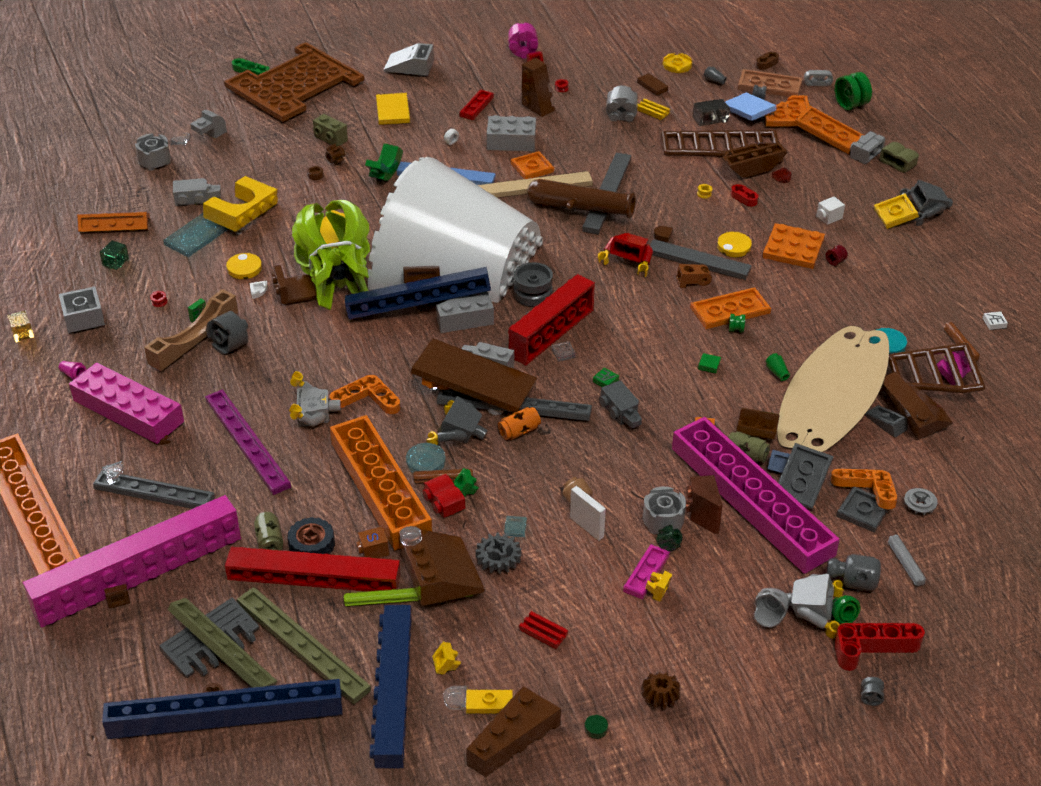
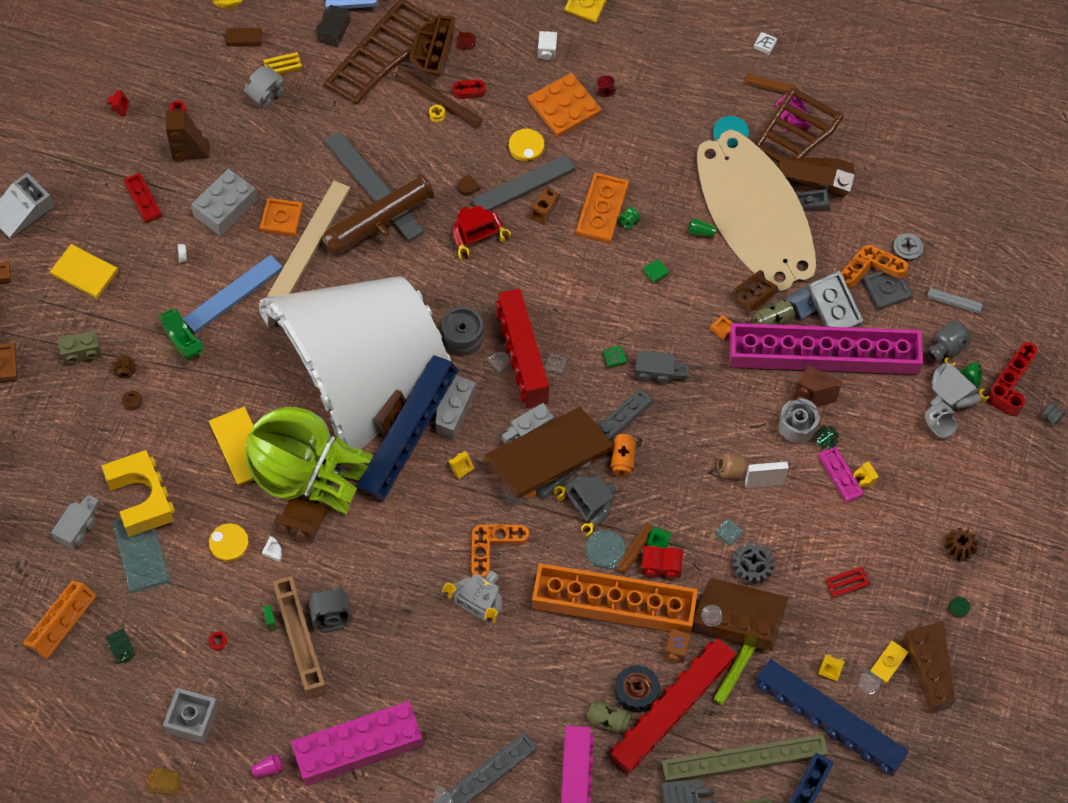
camera: 55 degrees left, 20 degrees up
(248, 442) = (475, 671): magenta tile -> none
(419, 341) = (461, 464): none -> yellow tile
(522, 39) = (84, 91): dark pink brick -> none
(718, 185) = (438, 97): none -> reddish brown axle

